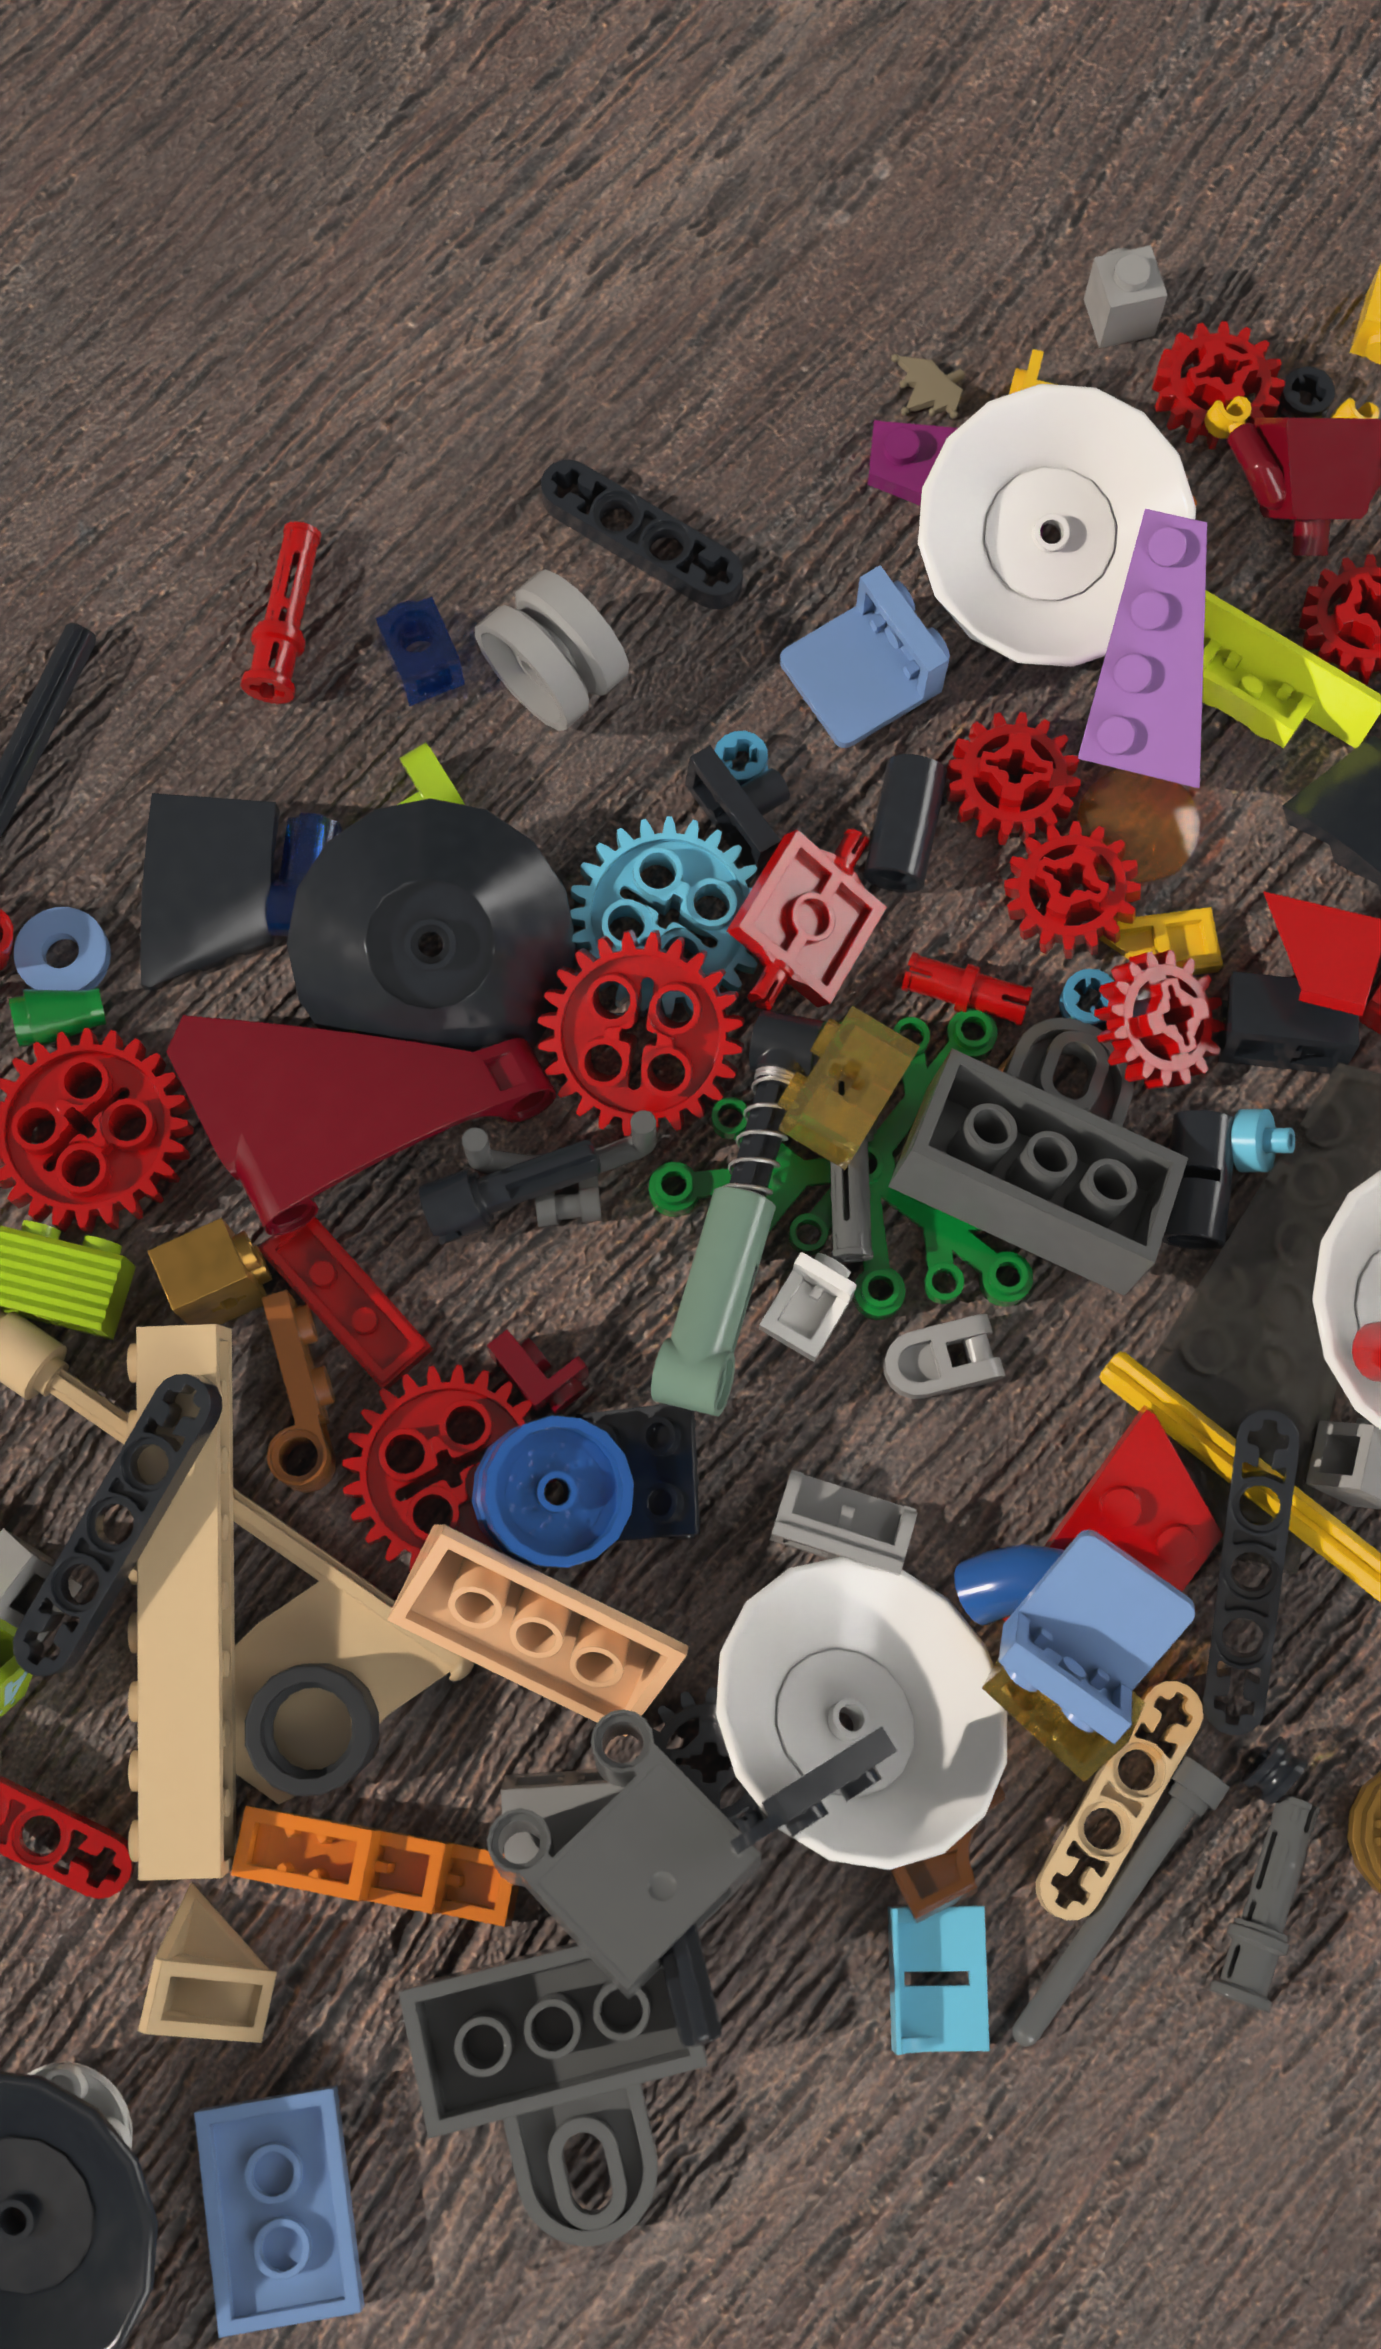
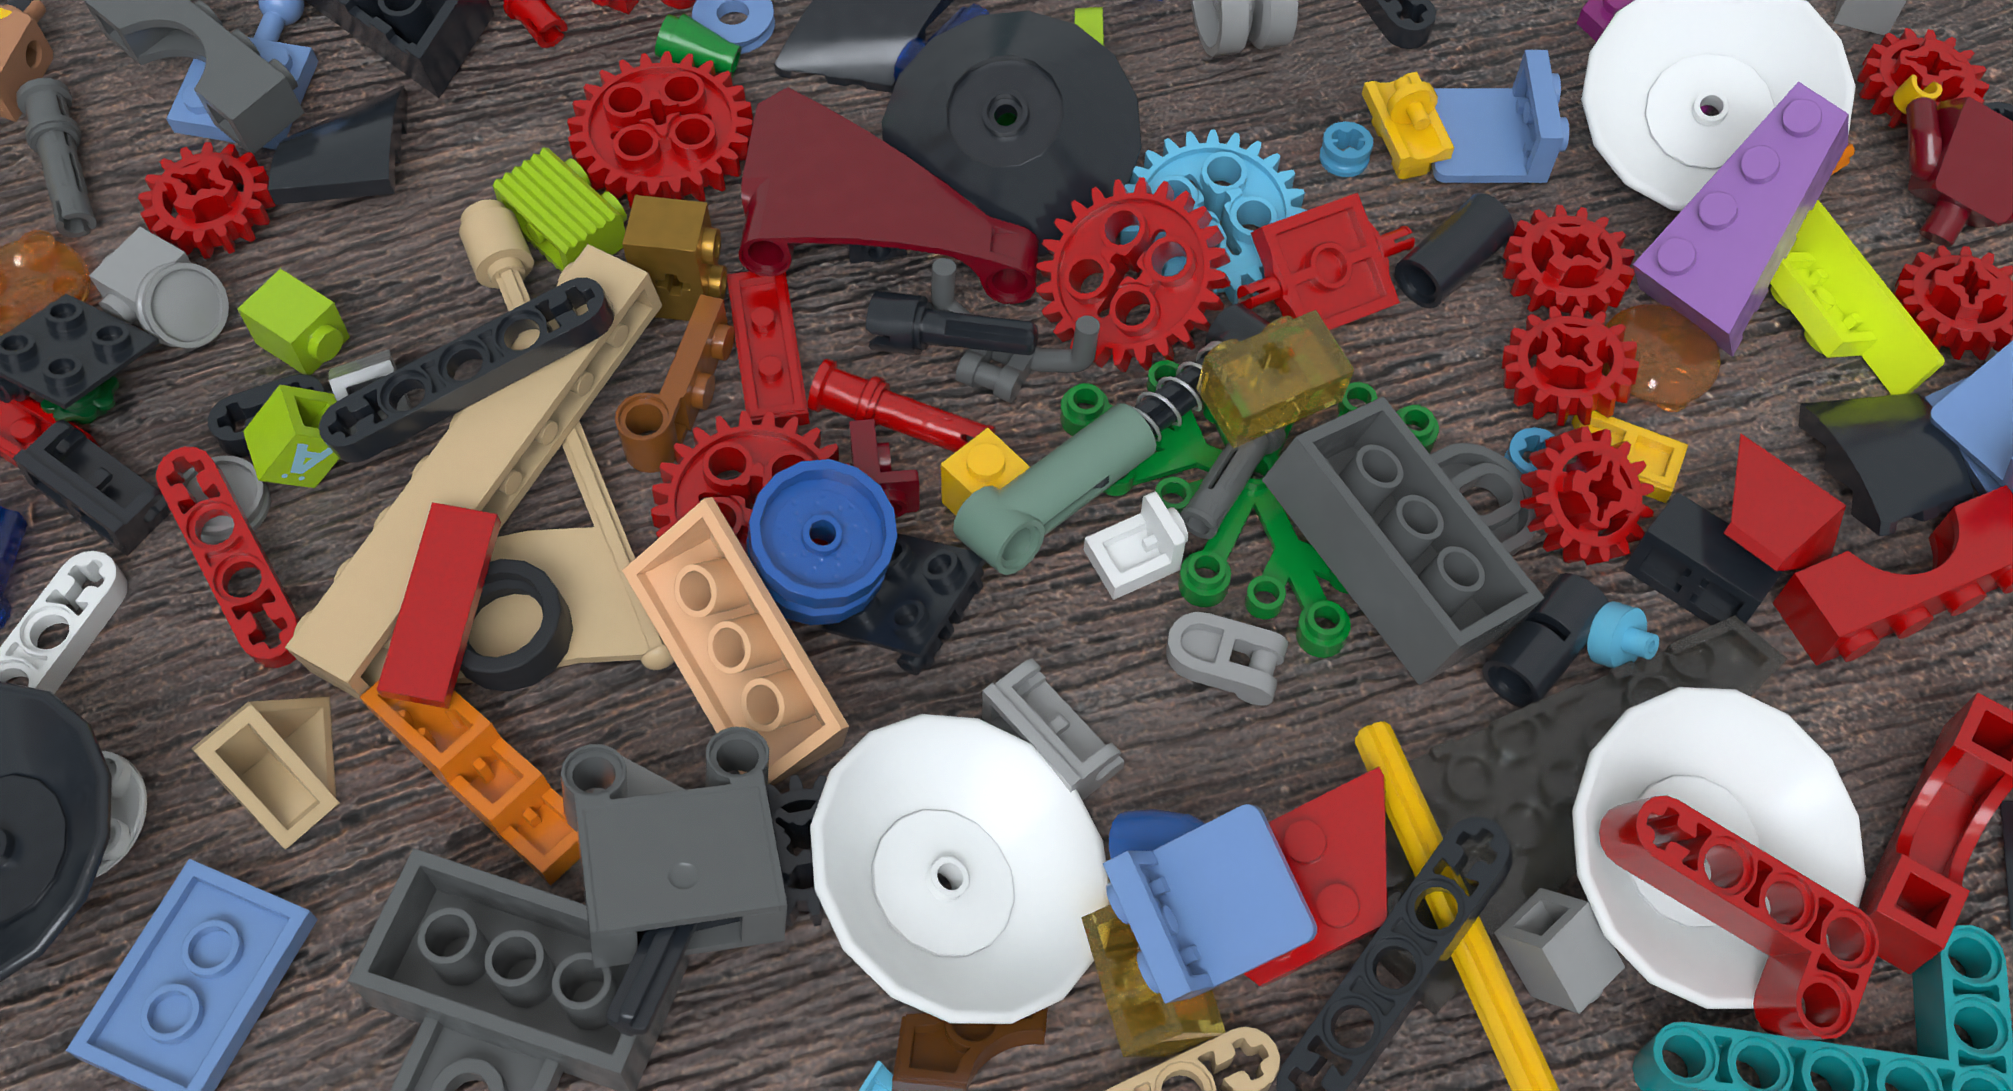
camera: 30 degrees right, 15 degrees down
(256, 1761) = (439, 606): none -> red tile
(484, 1301) = (872, 399): none -> red pin
(638, 1323) = (976, 465): none -> yellow brick
(738, 808) = (1317, 168): black tile -> none
(786, 706) = (1408, 123): none -> yellow hips
(801, 1802) = (859, 865): black hinge -> none
(967, 988) = (1431, 391): red pin -> none

